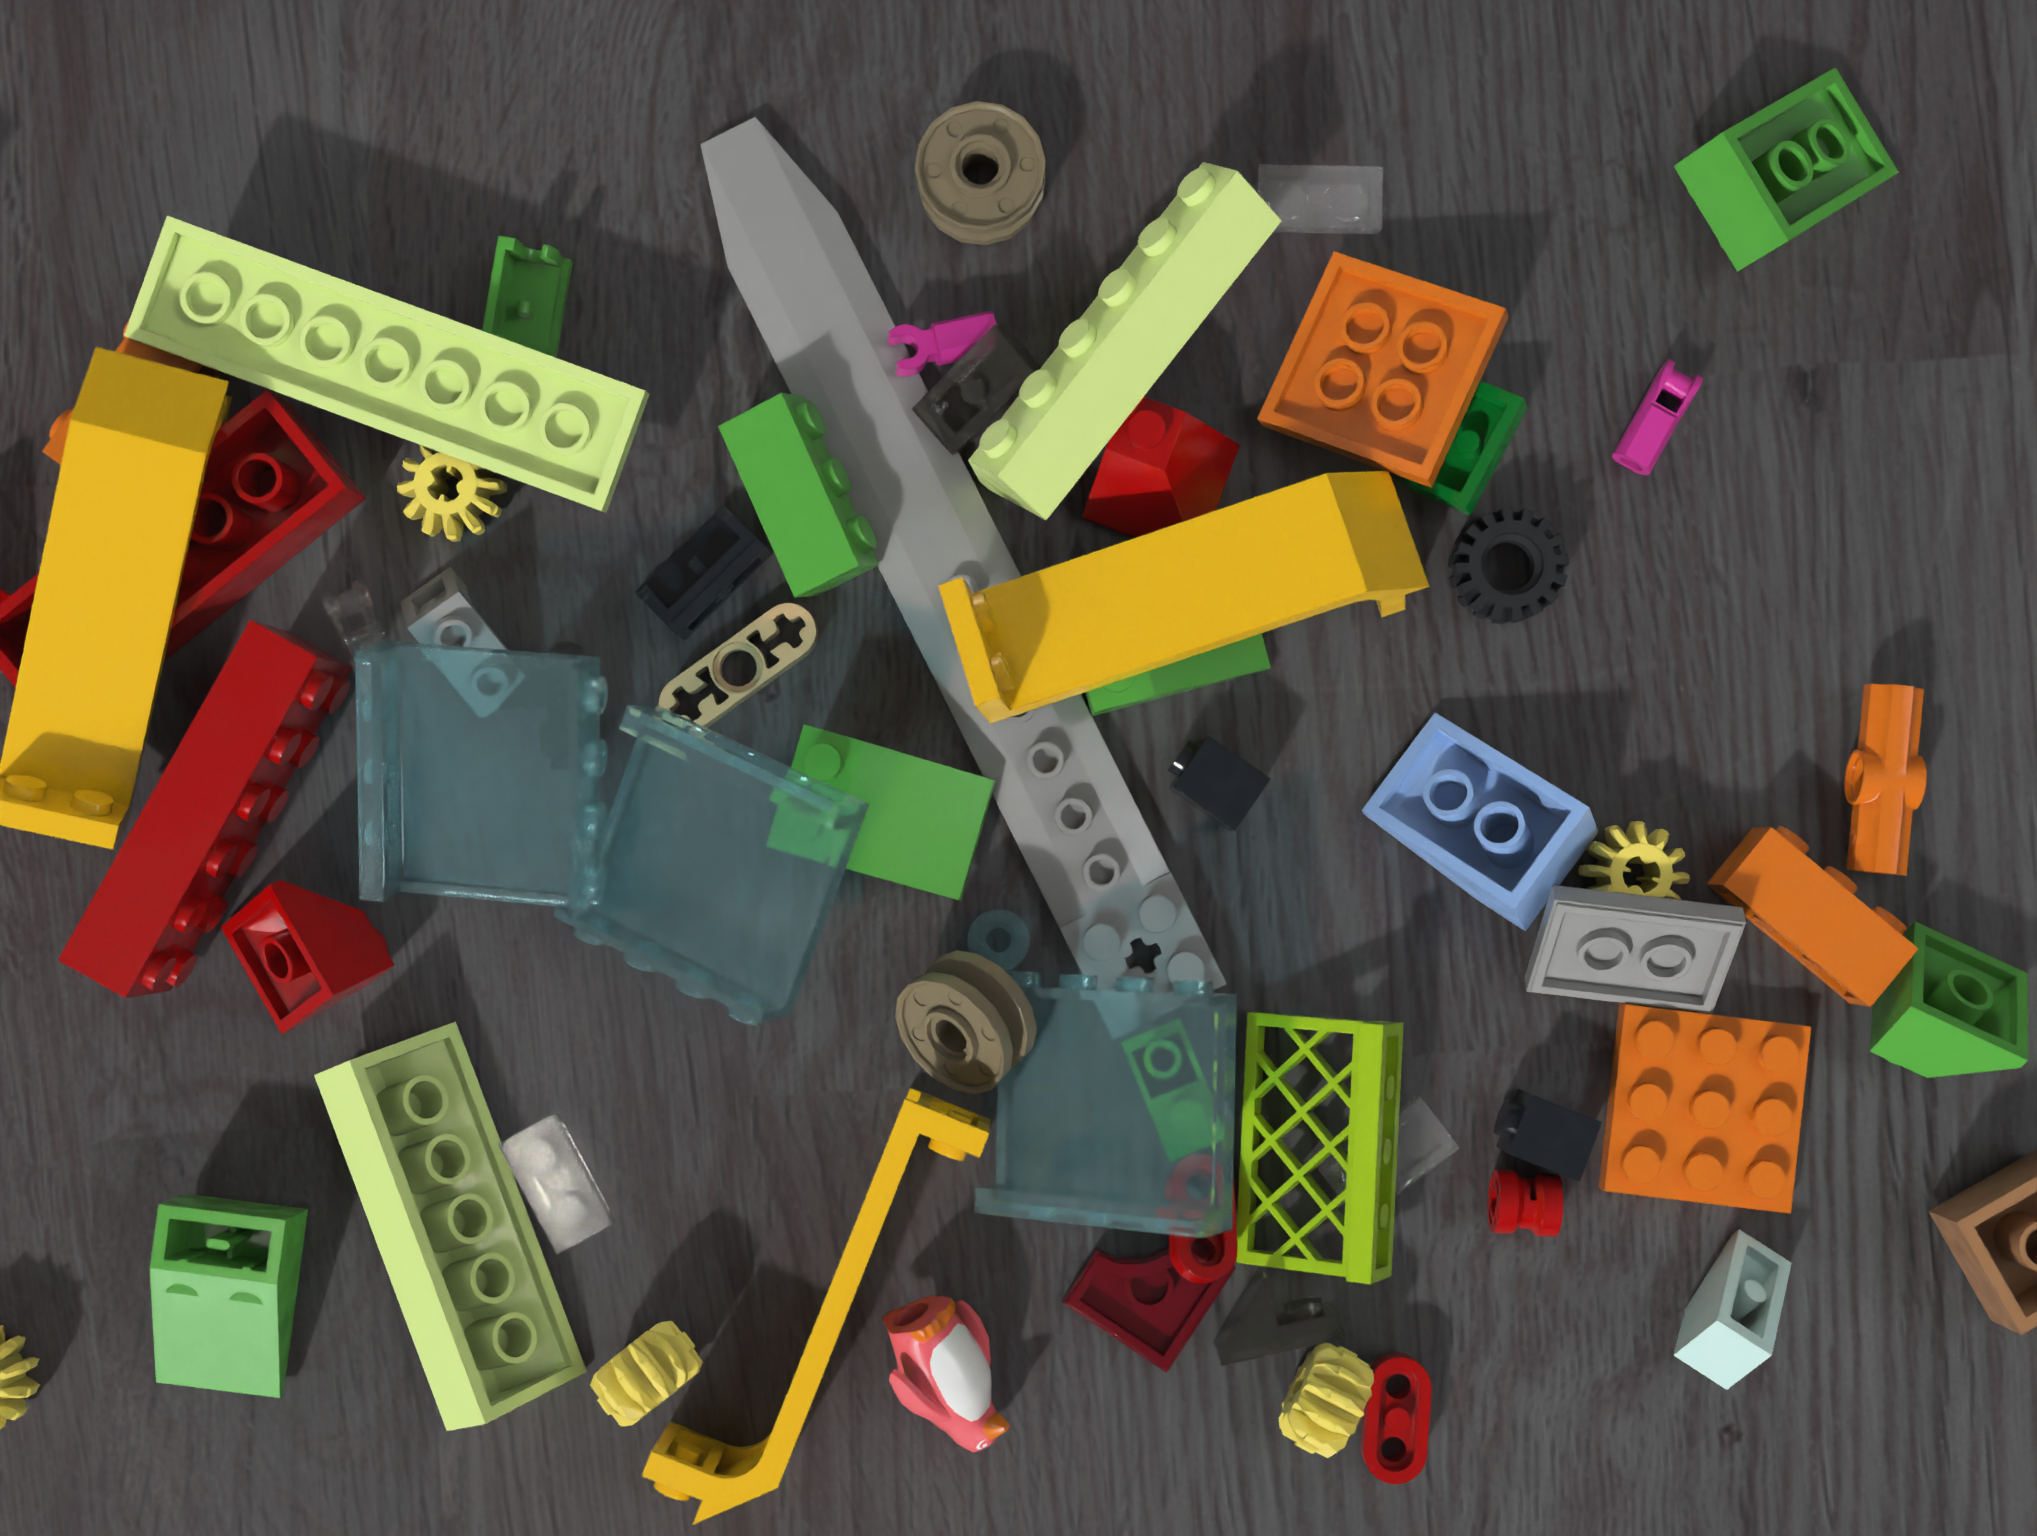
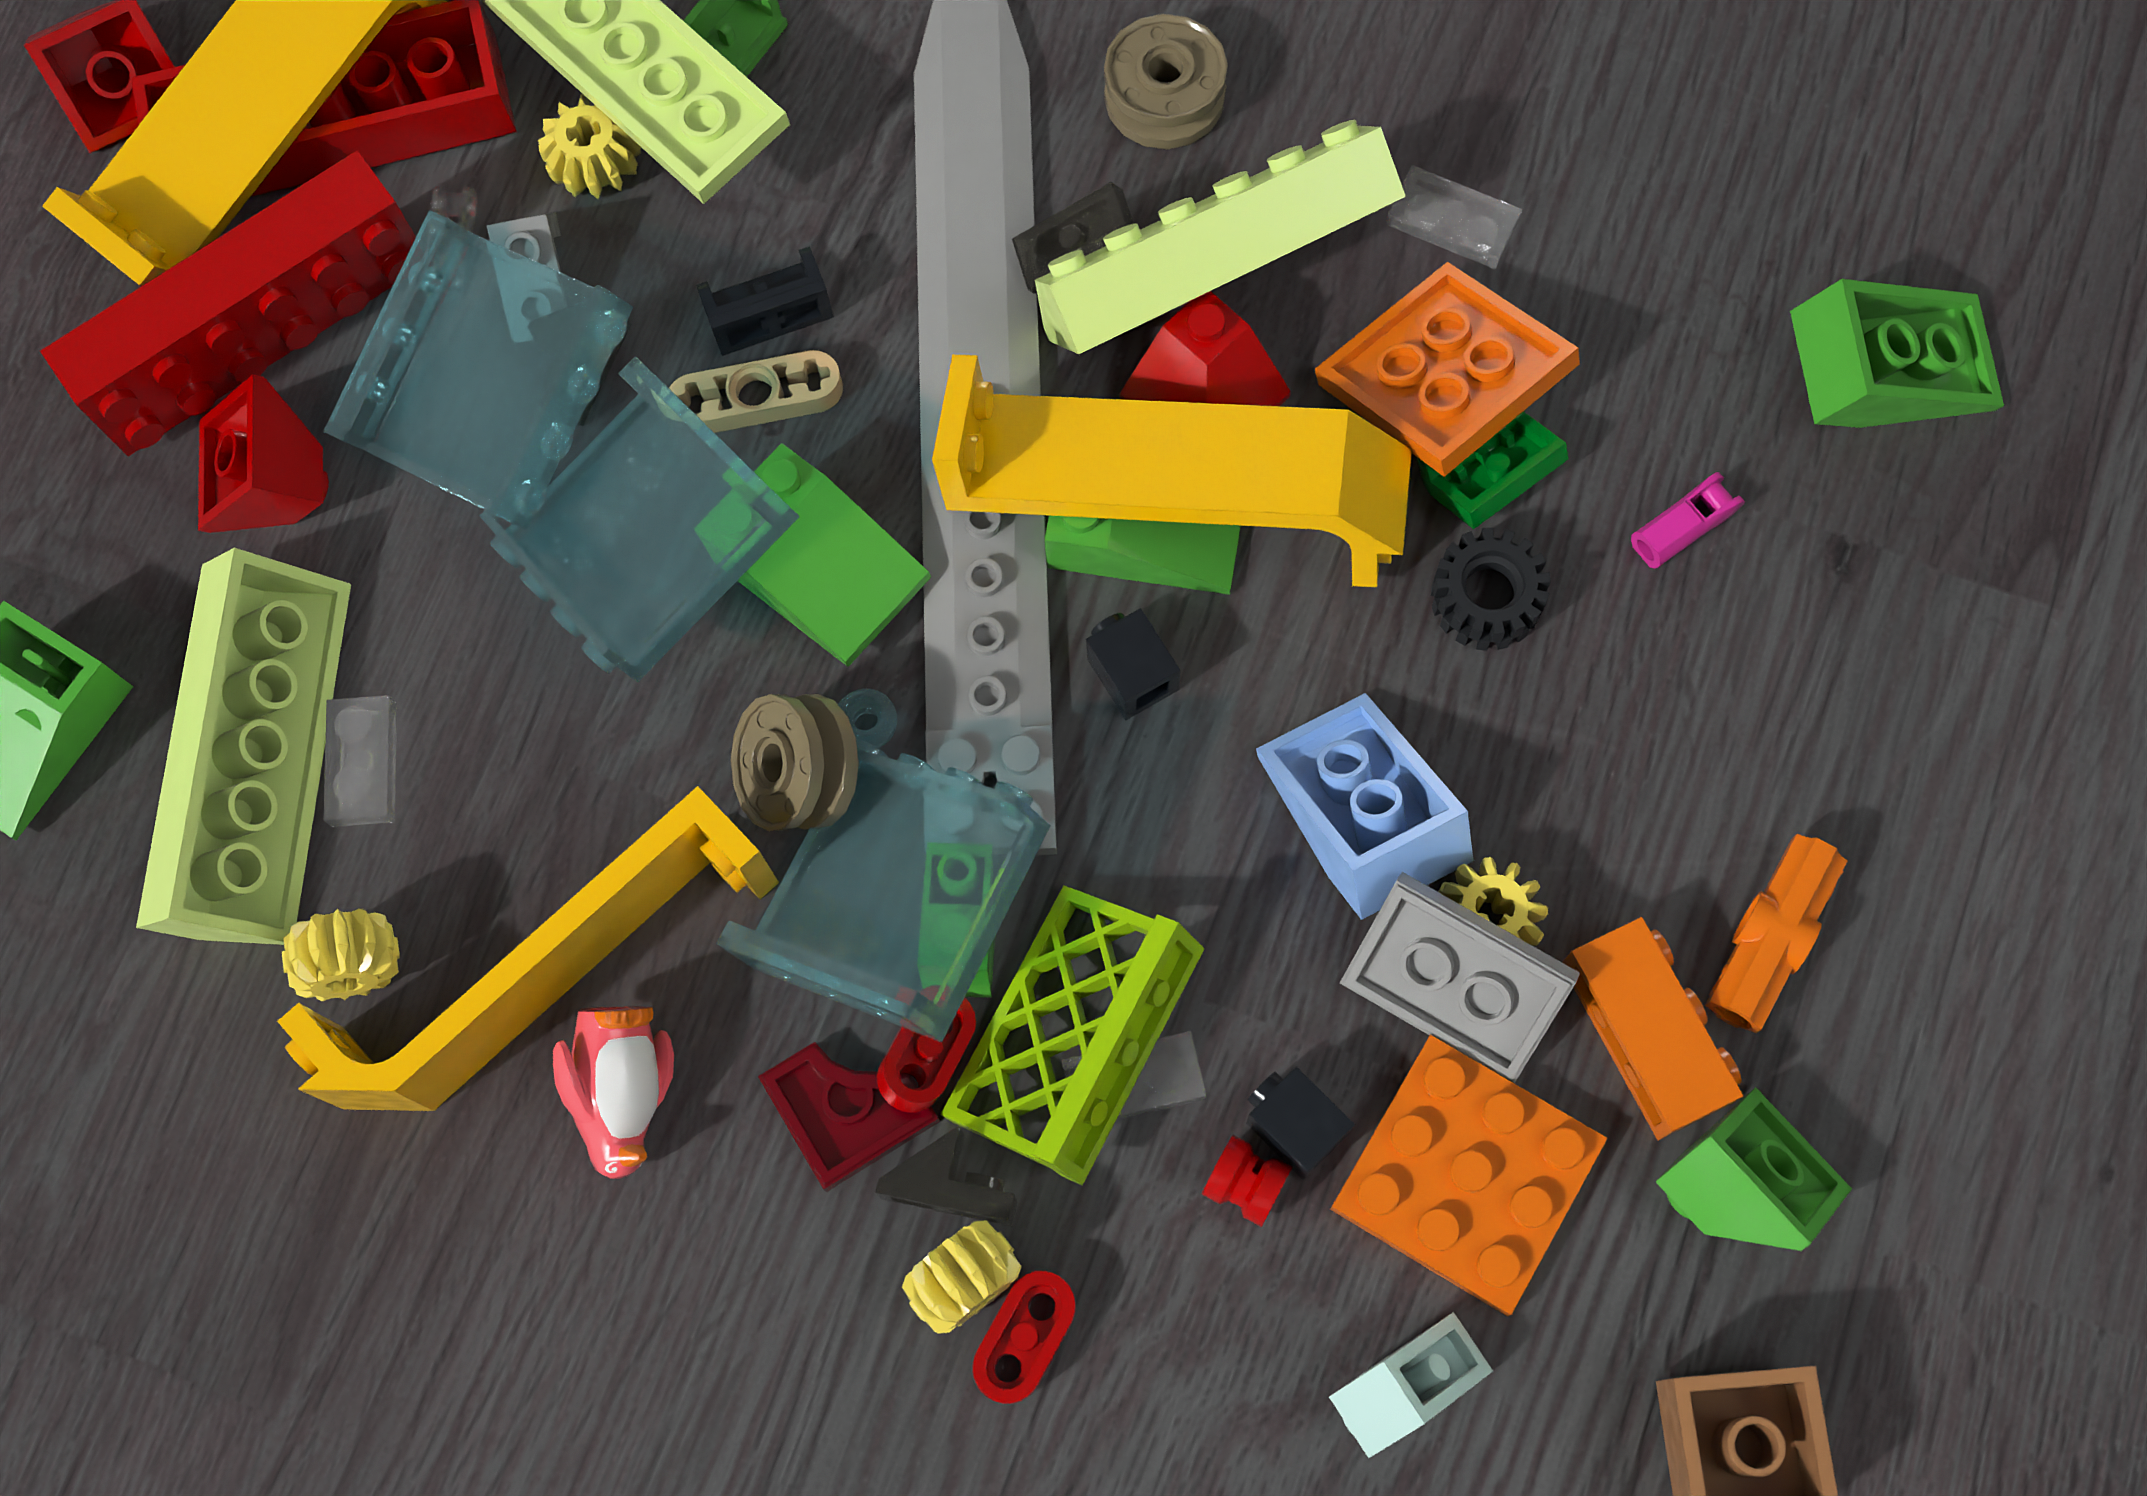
camera: 30 degrees right, 15 degrees down
(800, 494) = (879, 267): bright green brick -> none
(942, 342) = (1052, 193): dark pink bar -> none

